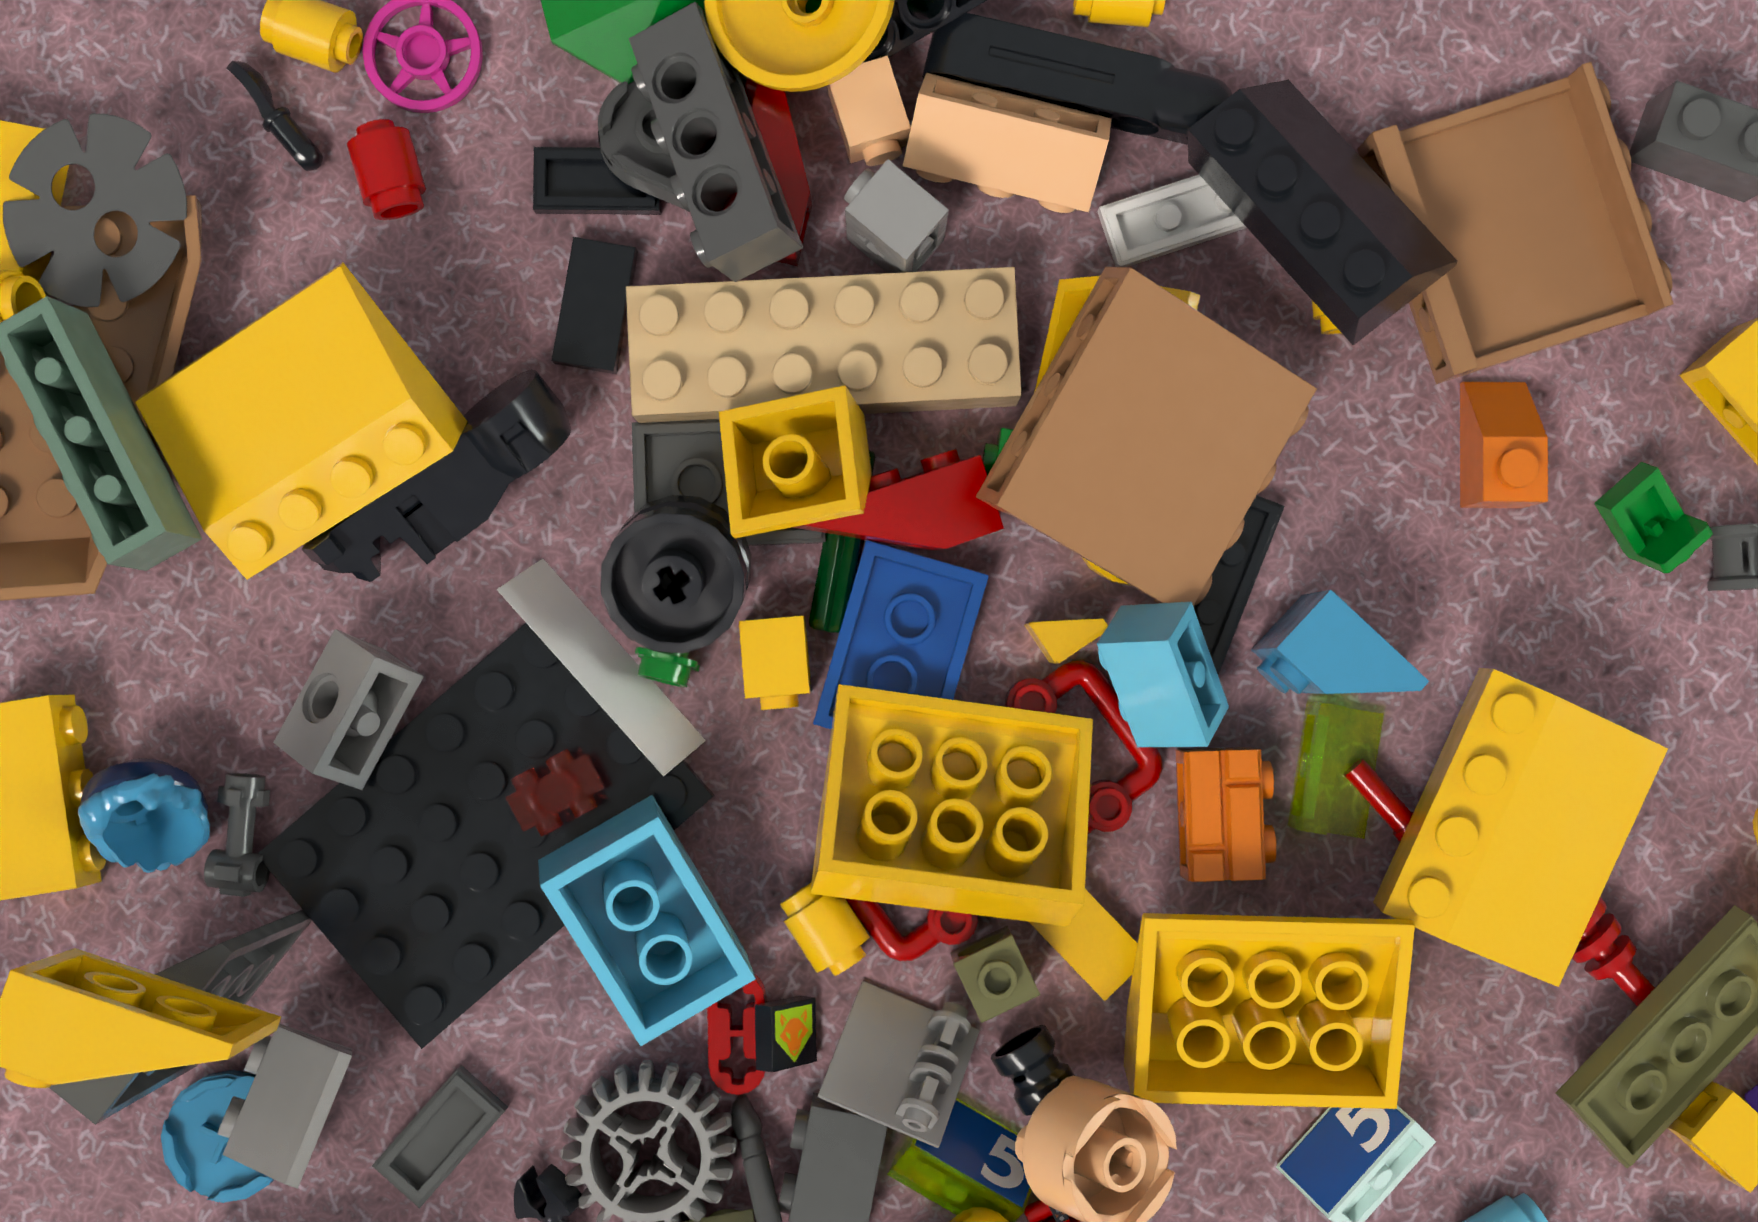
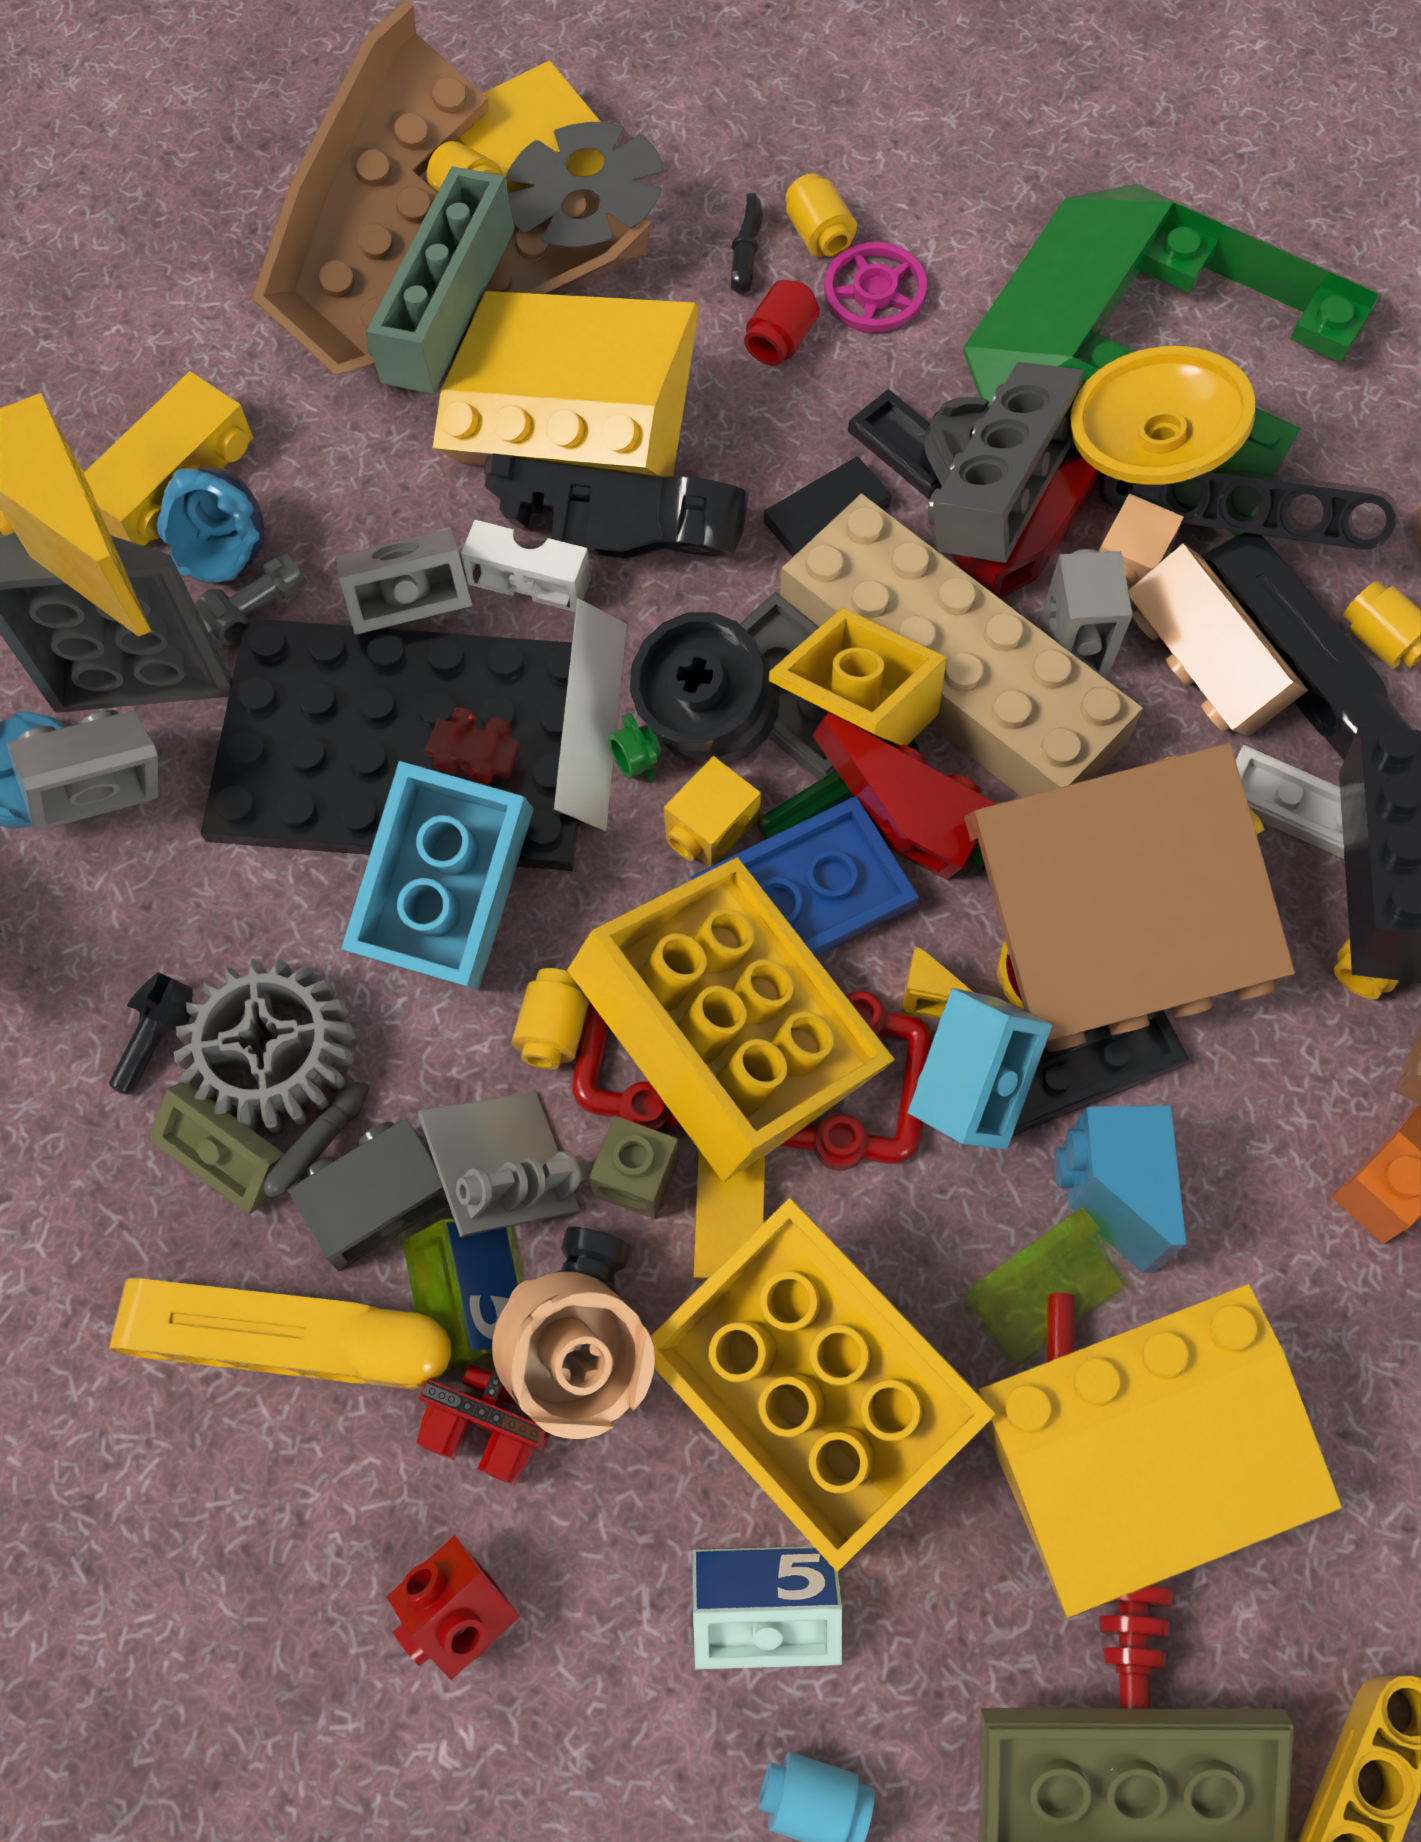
camera: 50 degrees right, 20 degrees down
(440, 1136) = (144, 904): dark grey tile -> none
(446, 586) = (546, 573): none -> white piece
(721, 1041) = (404, 1022): red beam -> none
(785, 1033) = (444, 1062): tile -> none
(1223, 814) = (924, 1225): orange brick -> none

